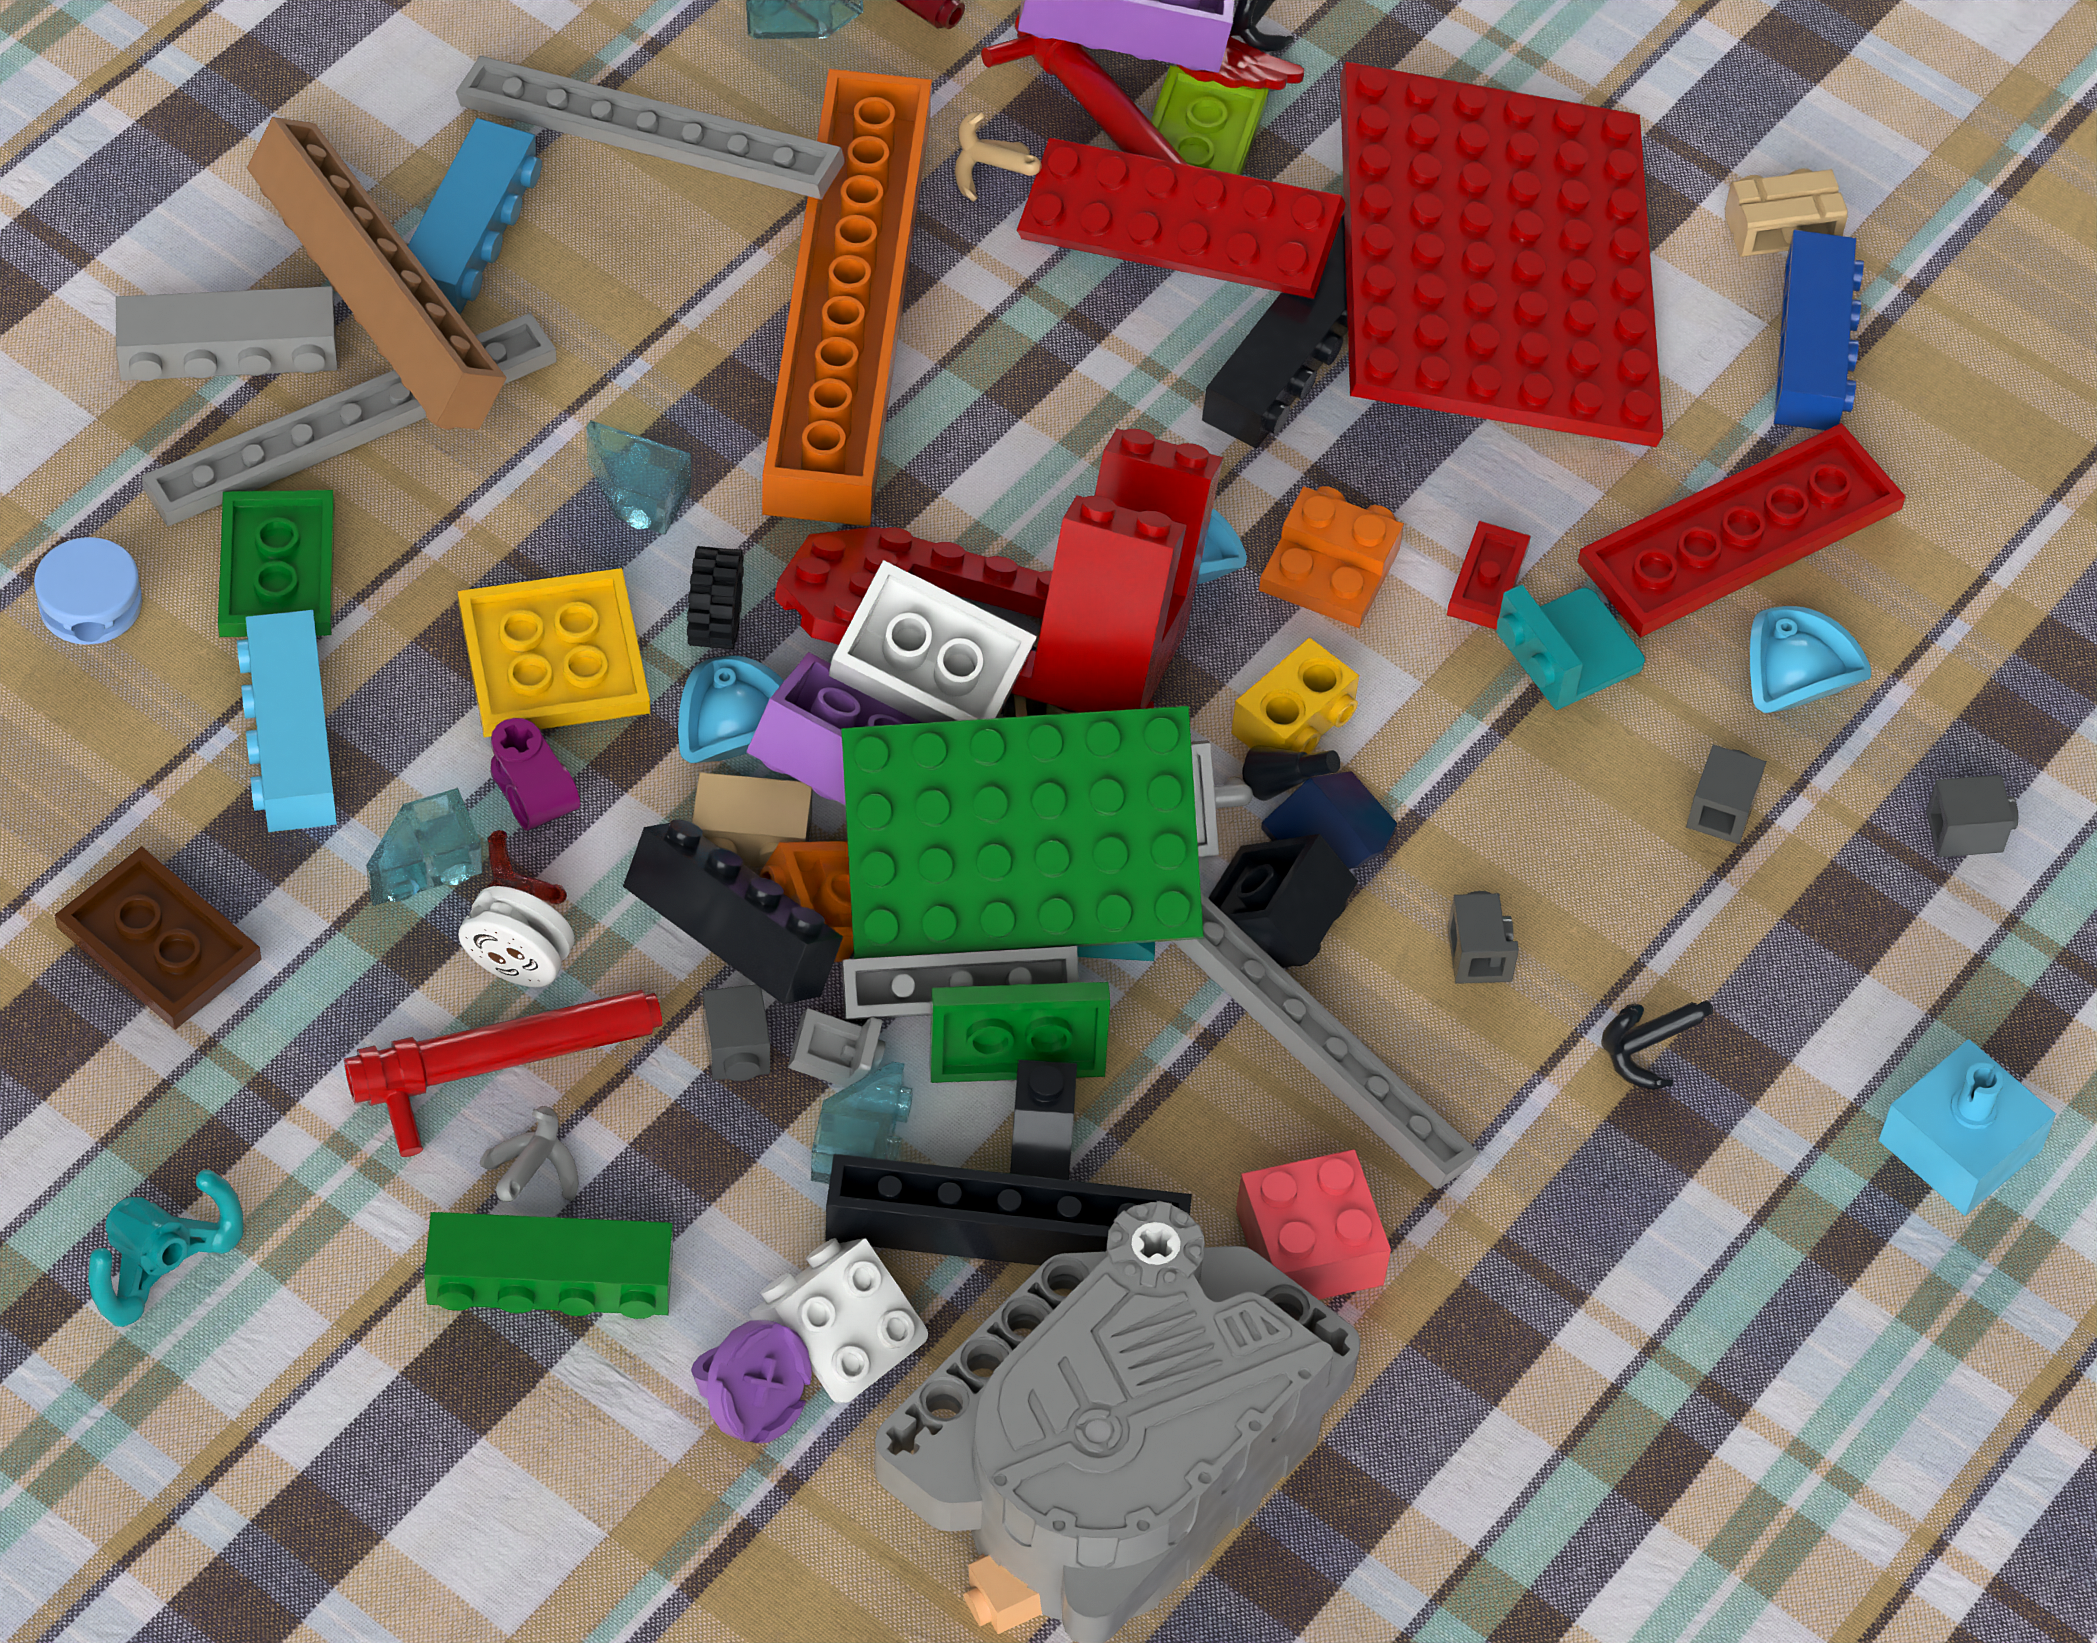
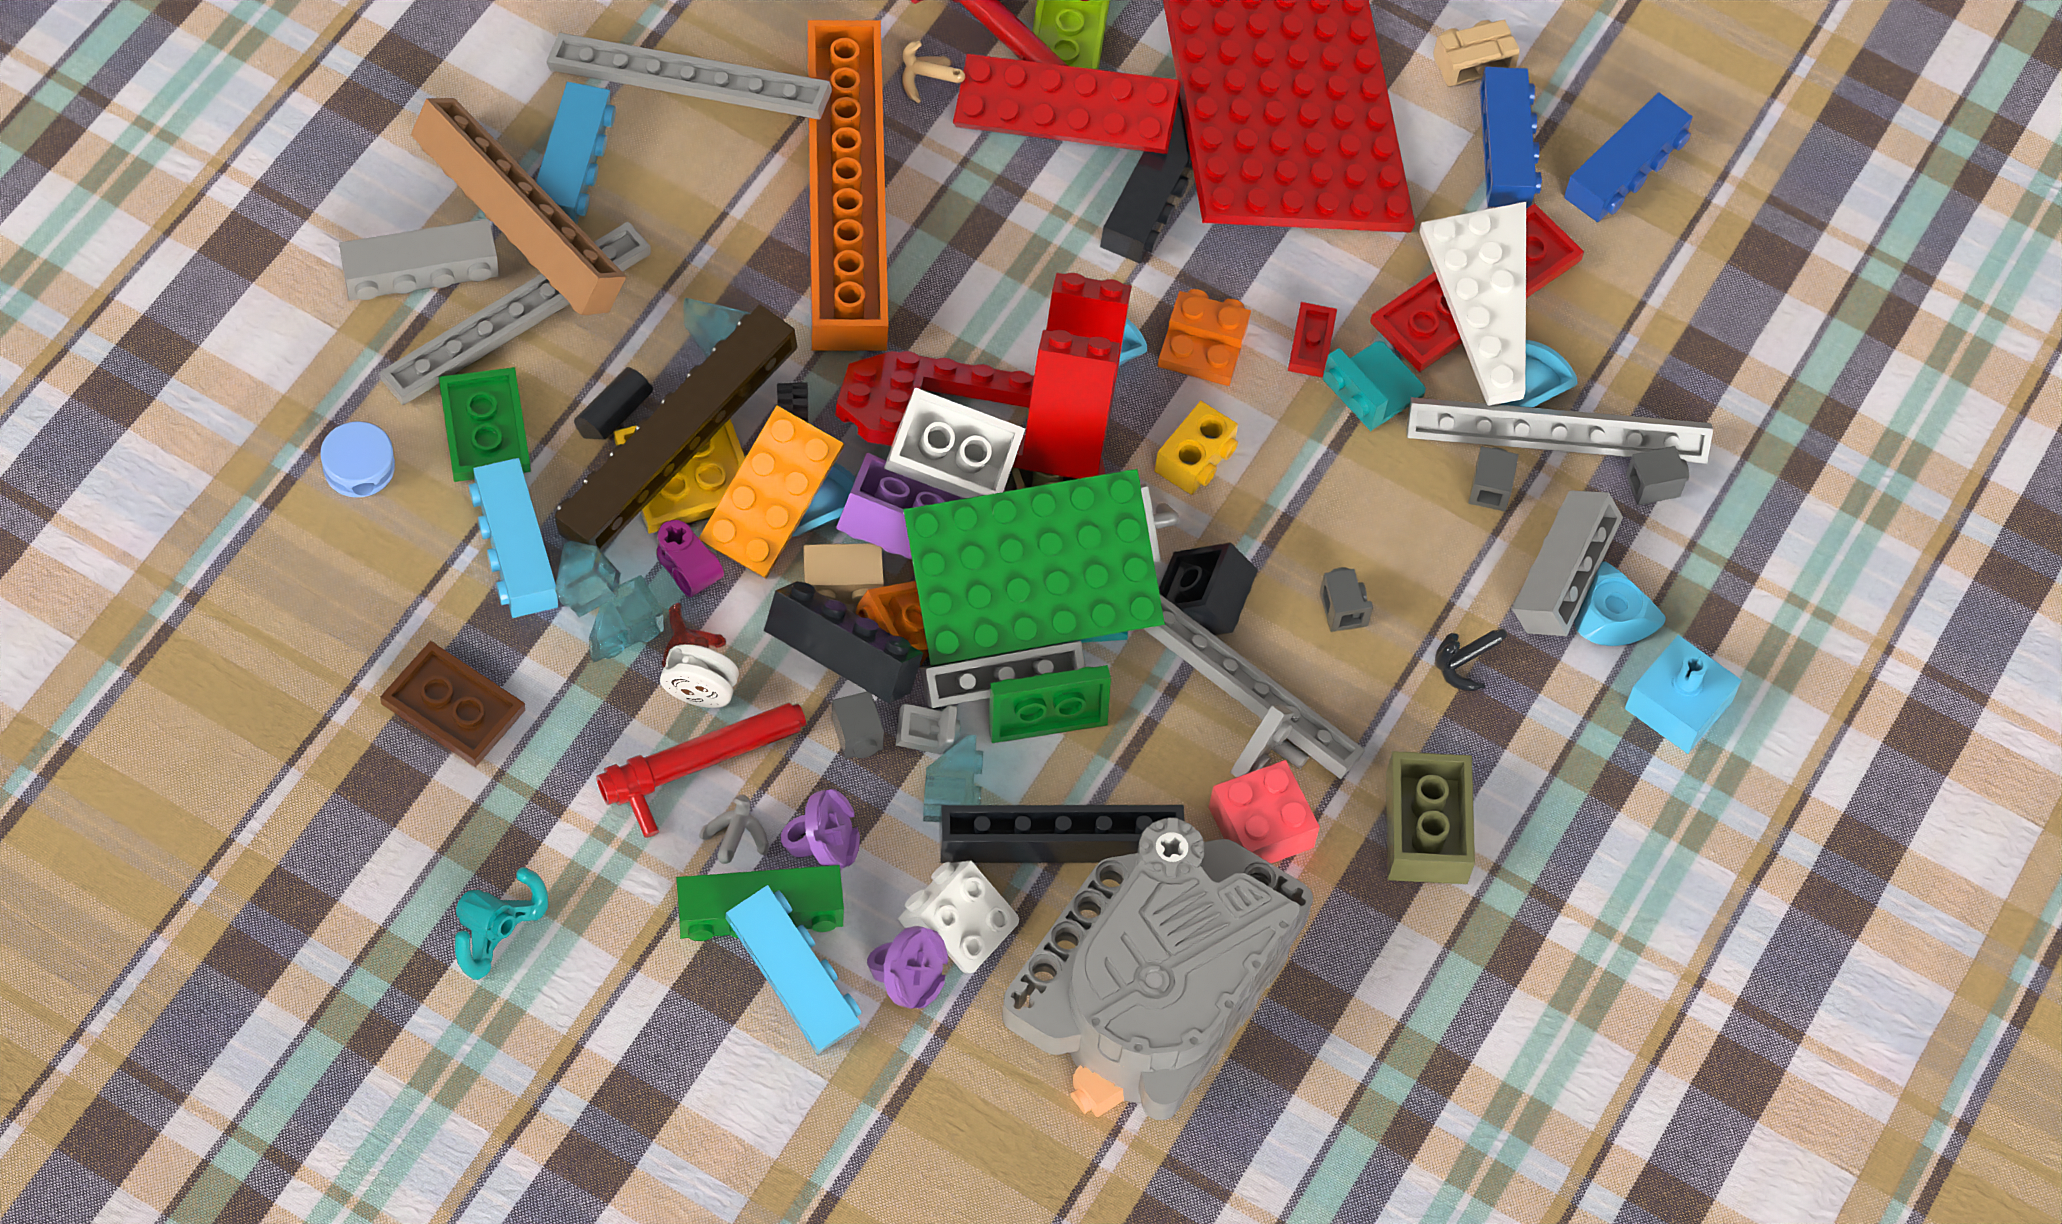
camera: 10 degrees left, 5 degrees up
(375, 783) = (585, 578): none -> clear light blue slope
(463, 555) = (613, 405): none -> black brick
(541, 597) = (676, 429): none -> dark brown brick
(577, 1362) = (793, 969): none -> medium azure brick
(661, 1172) = (827, 830): none -> medium lavender tile
(665, 695) = (771, 492): none -> light orange plate
(1043, 1119) = (1073, 763): black slope -> none
(1276, 770) = (1190, 497): black cone -> none
(1336, 1115) = (1268, 737): none -> light grey plate
(1340, 812) = (1234, 521): dark blue slope -> none
(1560, 1258) = (1430, 817): none -> olive brick
(1750, 523) = (1484, 283): none -> white wing
(1818, 922) = (1567, 563): none -> light grey brick
(1828, 735) = (1555, 429): none -> light grey plate
(1882, 997) = (1616, 610): none -> medium azure hat
(1989, 376) = (1629, 157): none -> blue brick

